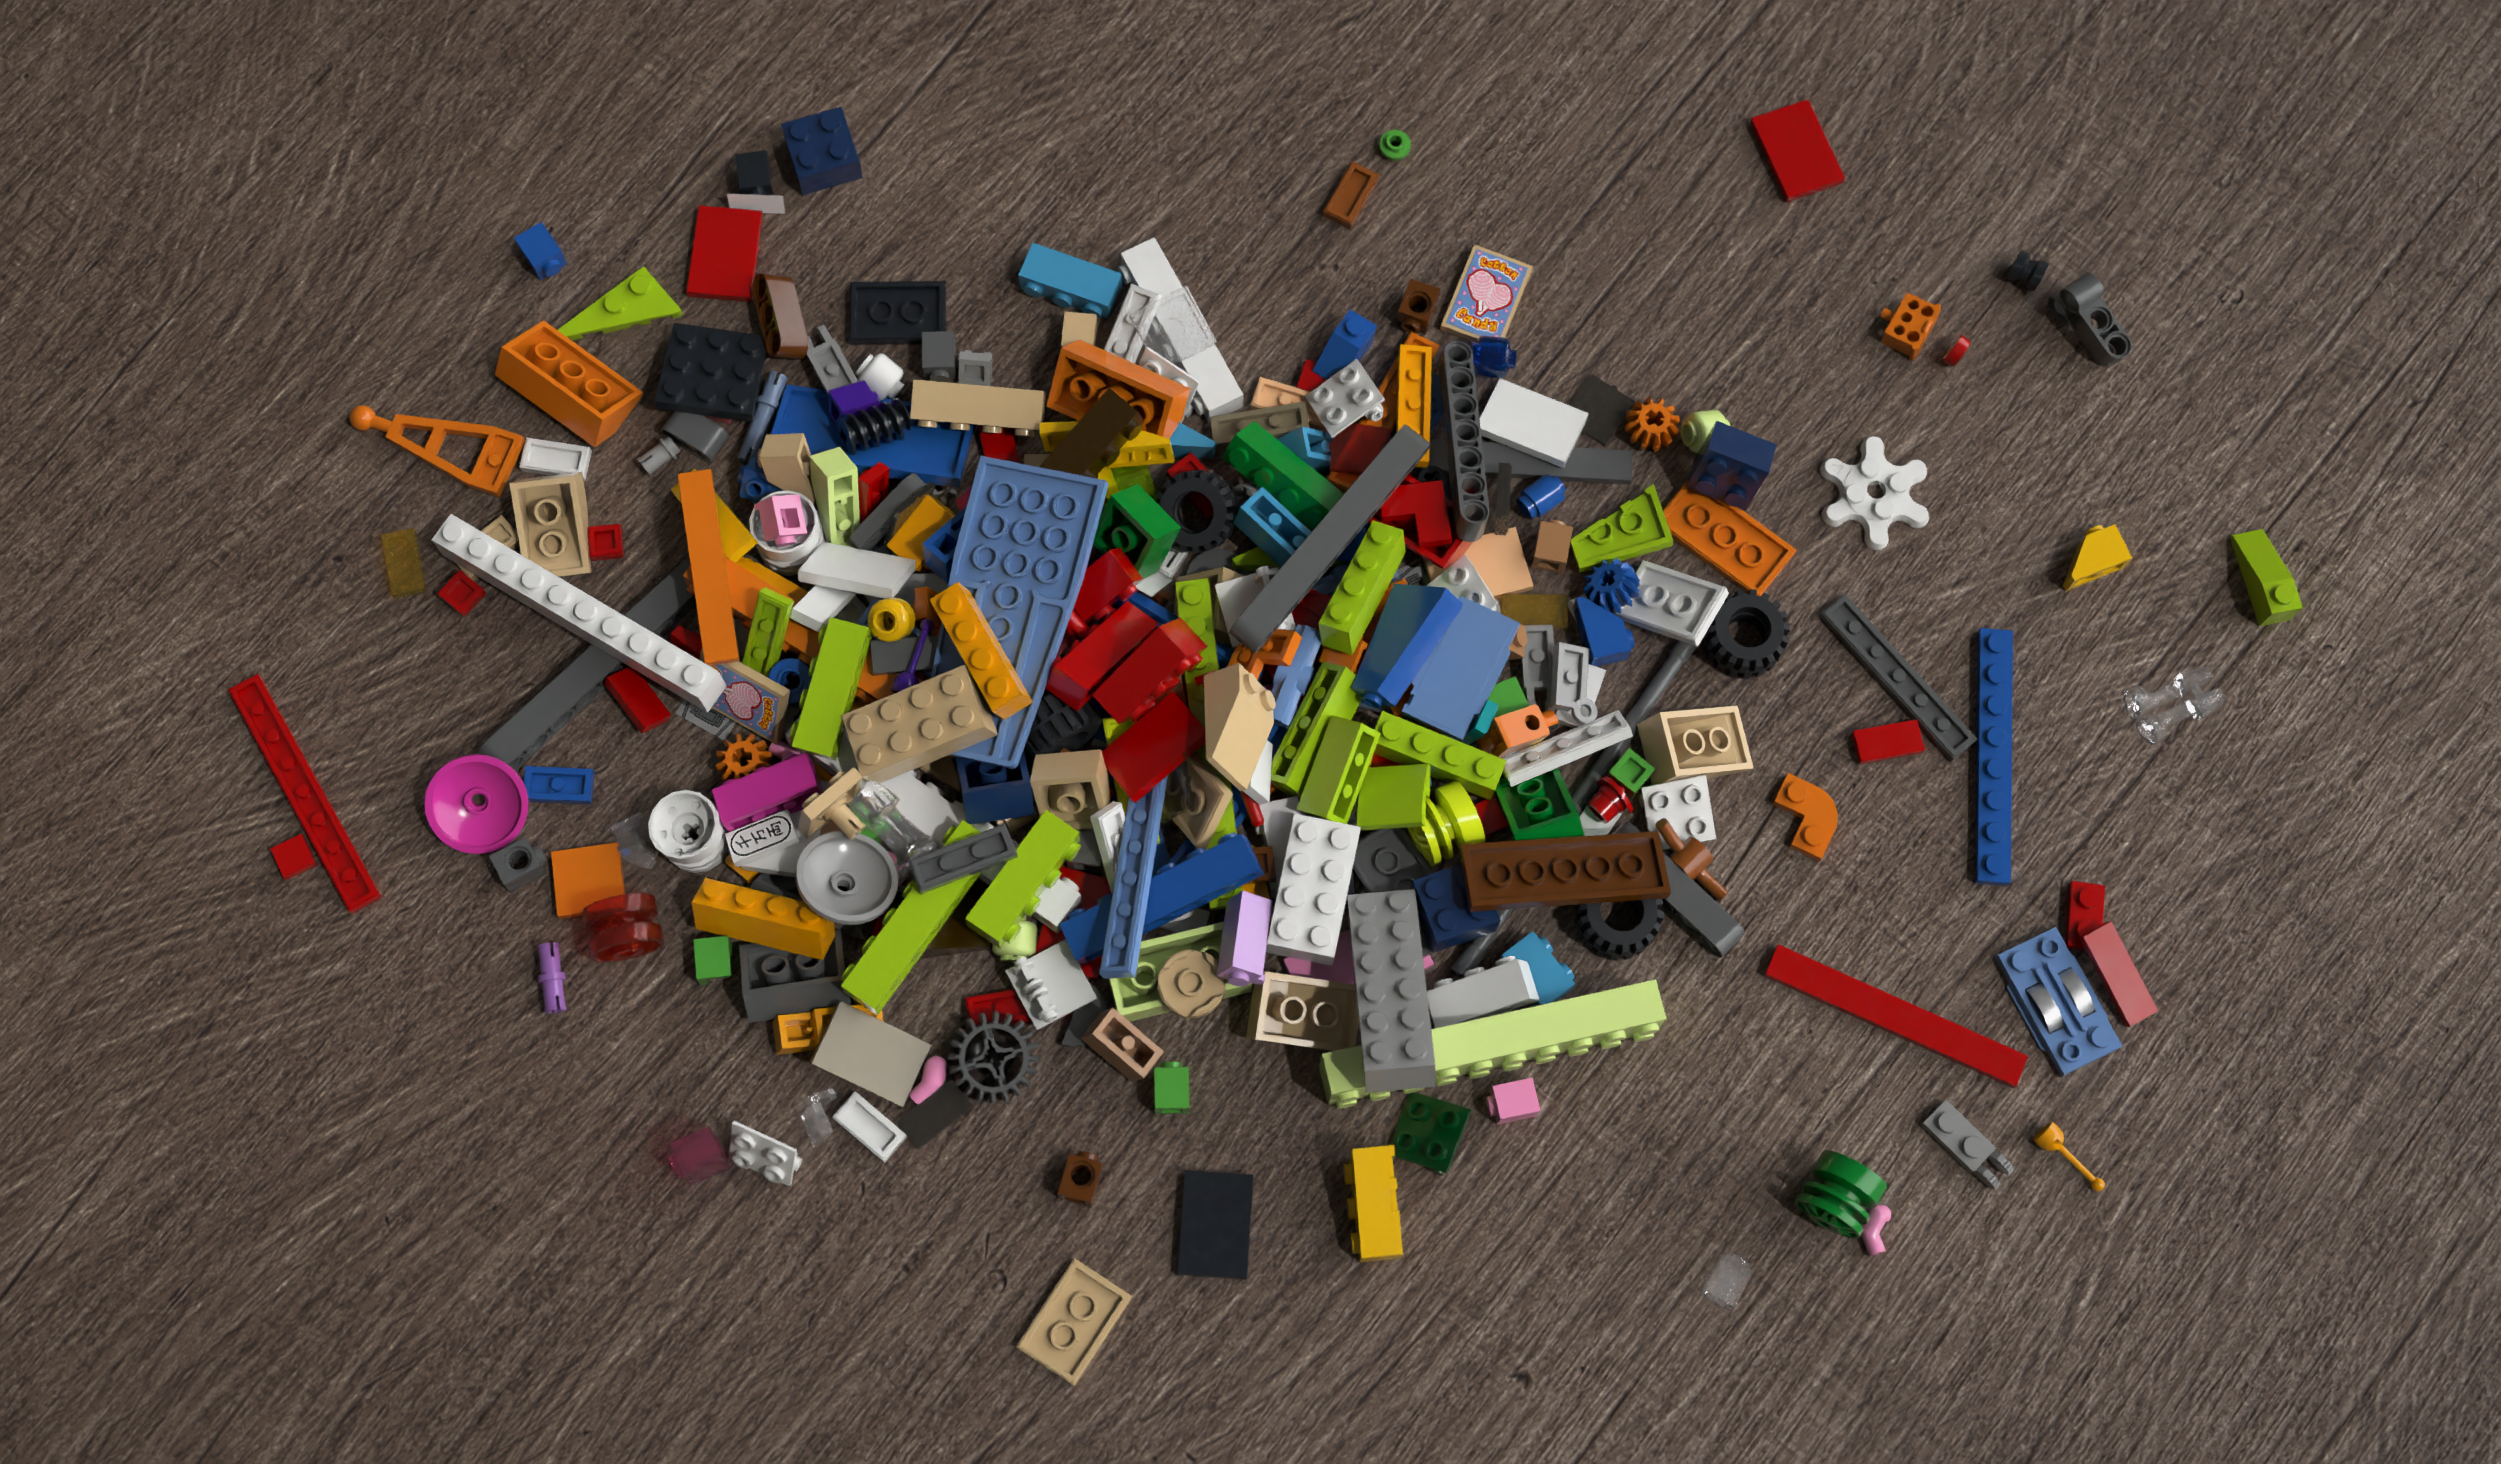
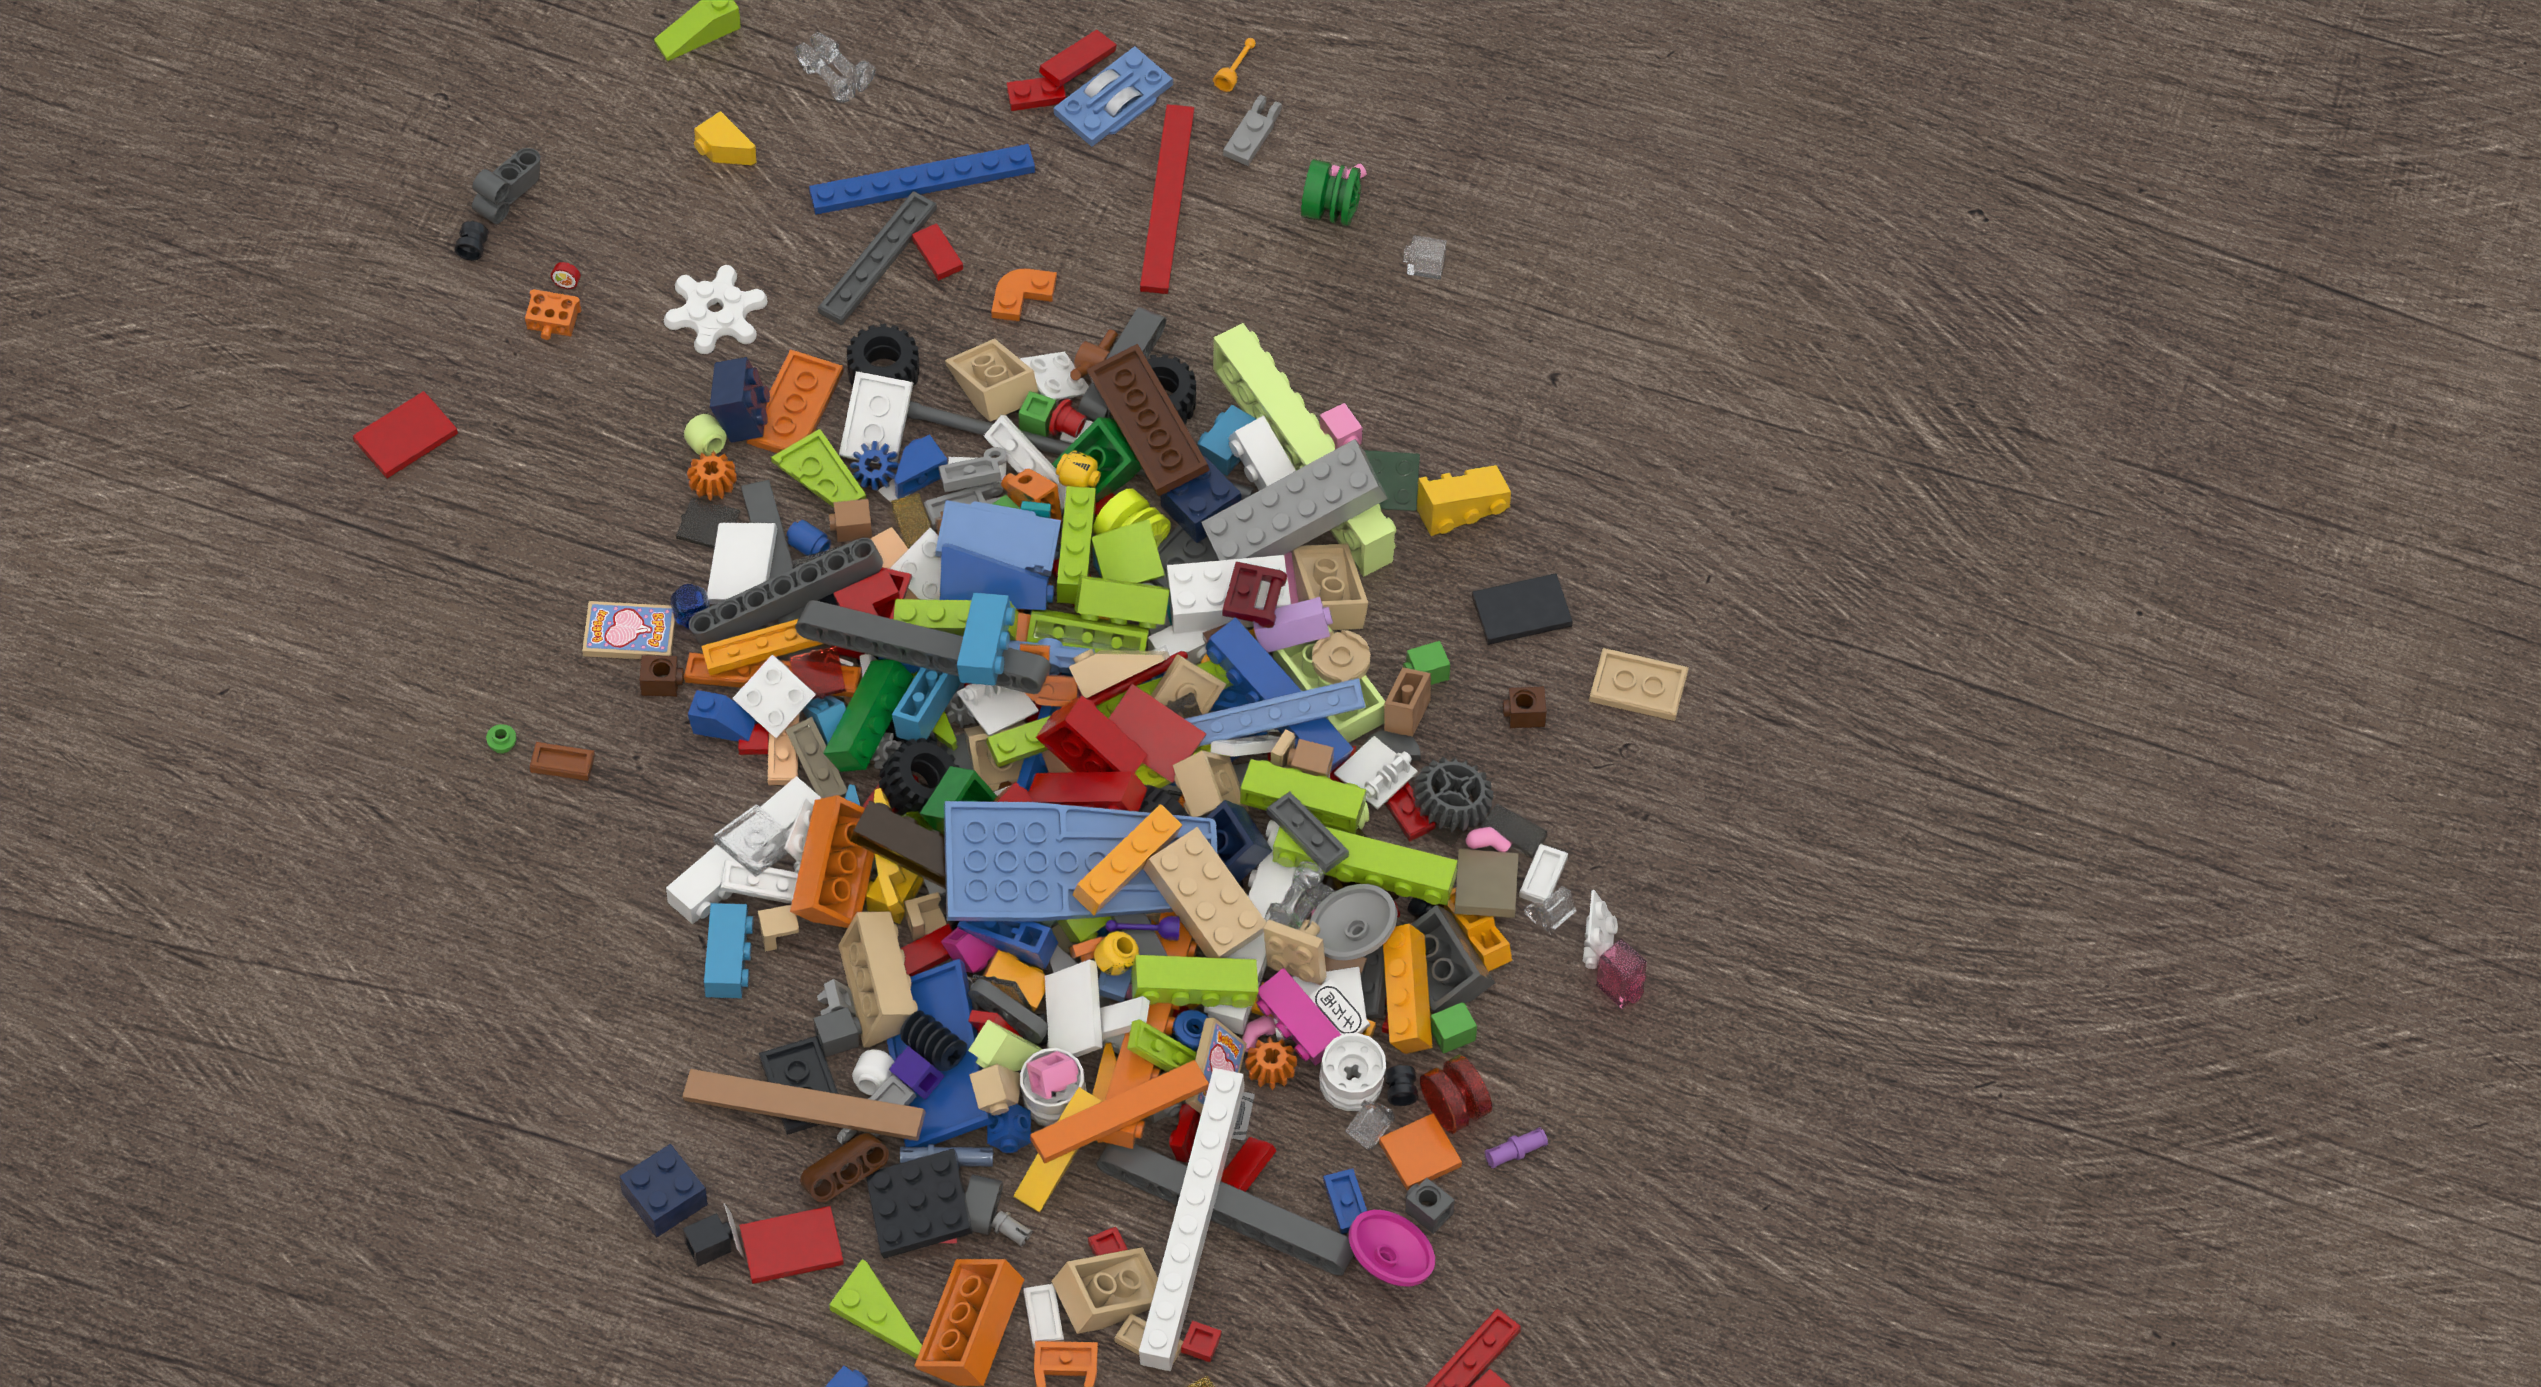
camera: 105 degrees left, 15 degrees down
(667, 885) = (1401, 1083): none -> black wheel
(862, 300) = (804, 1104): none -> medium nougat tile
(1061, 901) = (1311, 758): none -> medium nougat brick
(1088, 880) = (1281, 750): none -> tan tile
(1286, 889) = (1244, 592): none -> dark red plate
(1297, 583) = (985, 639): none -> dark azure brick
(1525, 781) = (1078, 470): none -> yellow head

